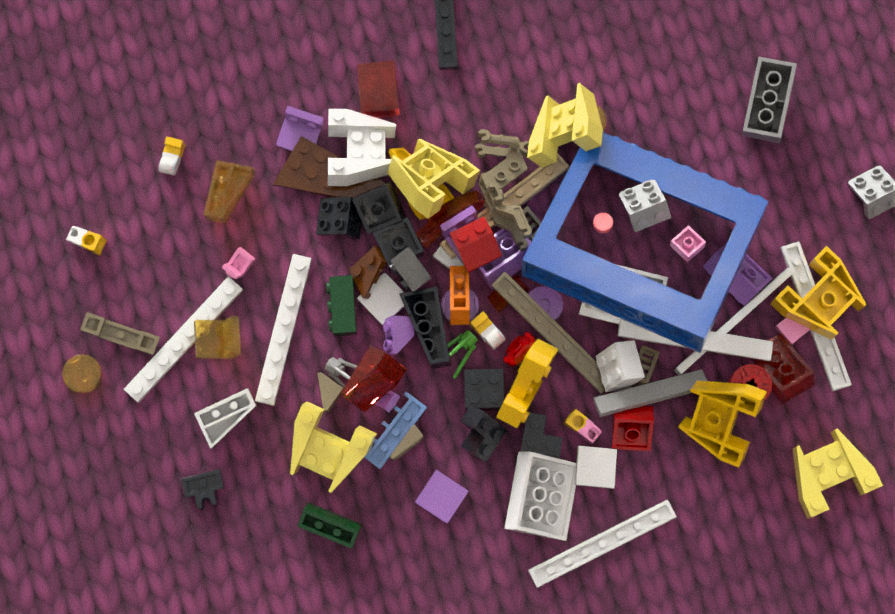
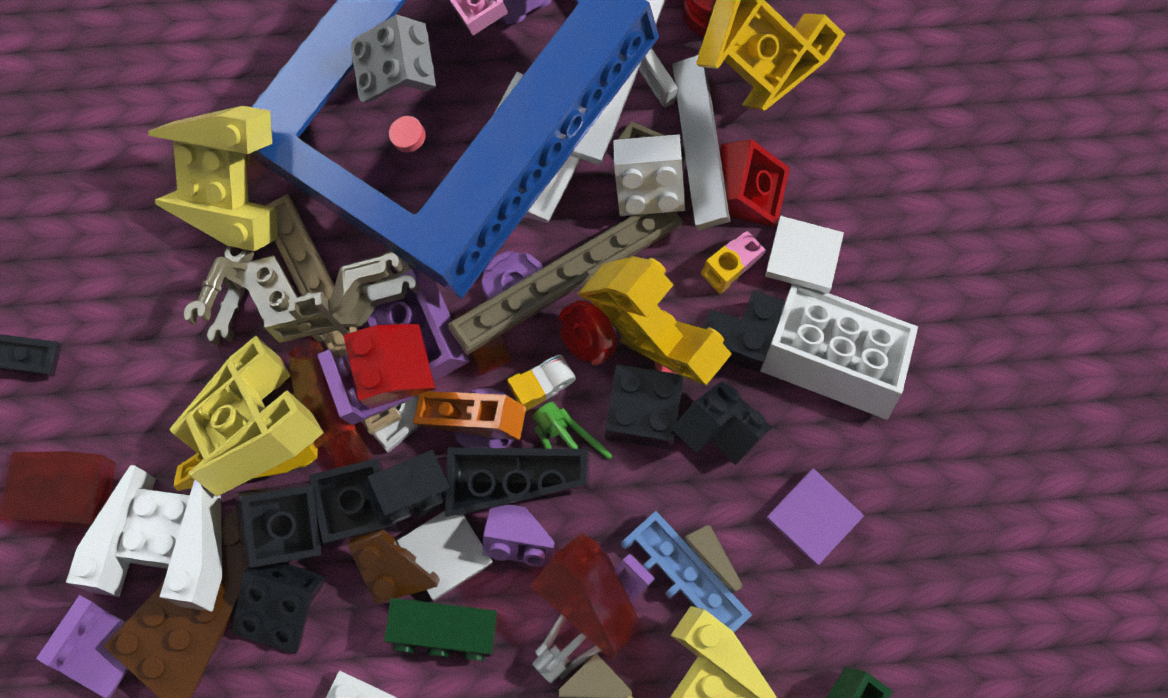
camera: 85 degrees left, 5 degrees down
(602, 543) = (931, 274): white tile -> none

